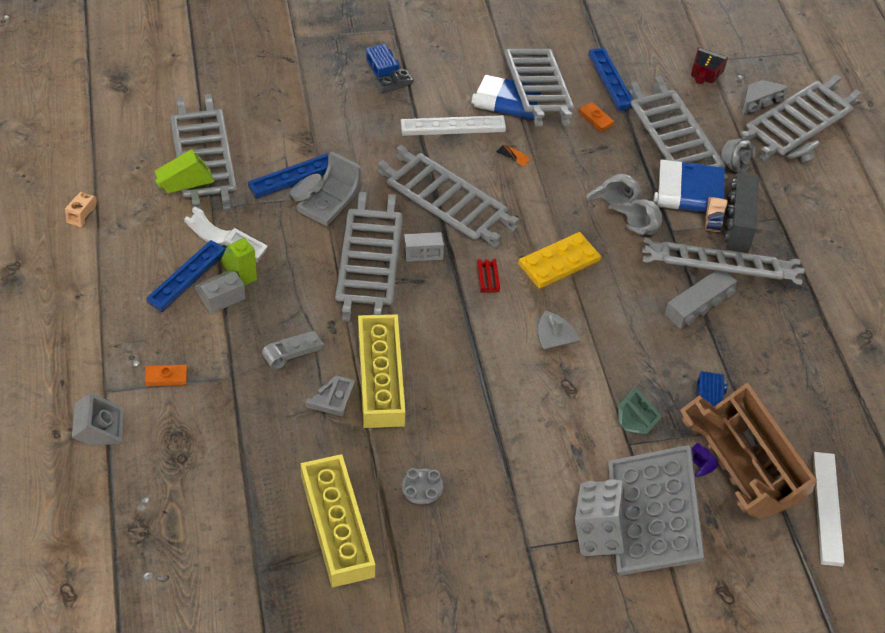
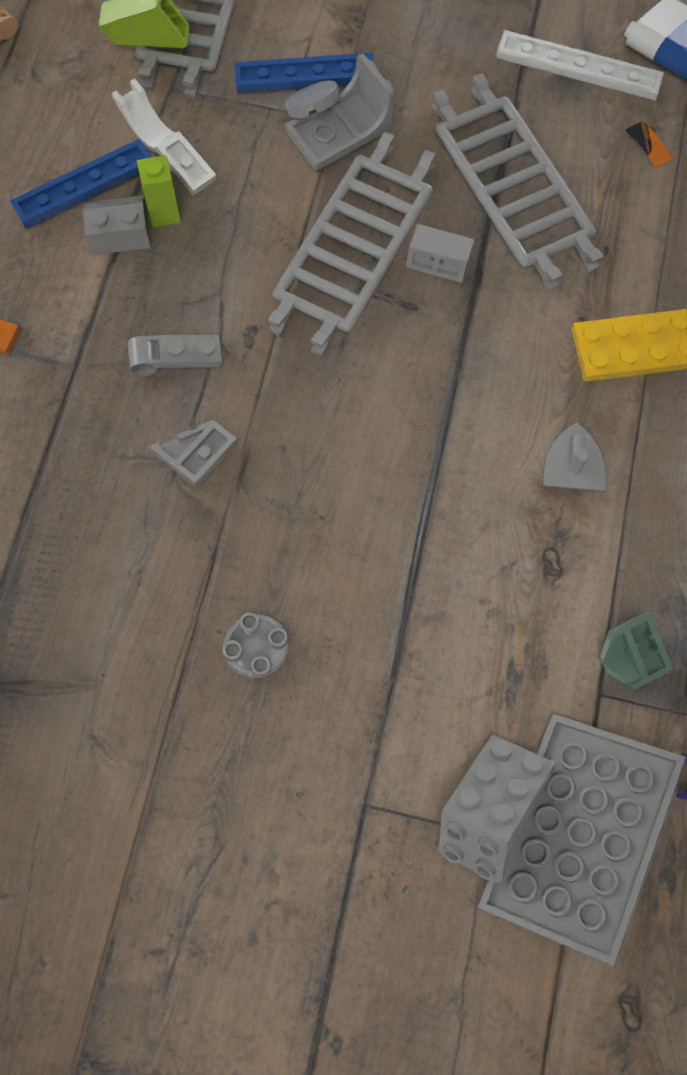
camera: 25 degrees right, 20 degrees up
(337, 521) = (102, 658): light yellow brick -> none
(381, 371) = (278, 437): light yellow brick -> none
(487, 264) = (521, 313): red tile -> none

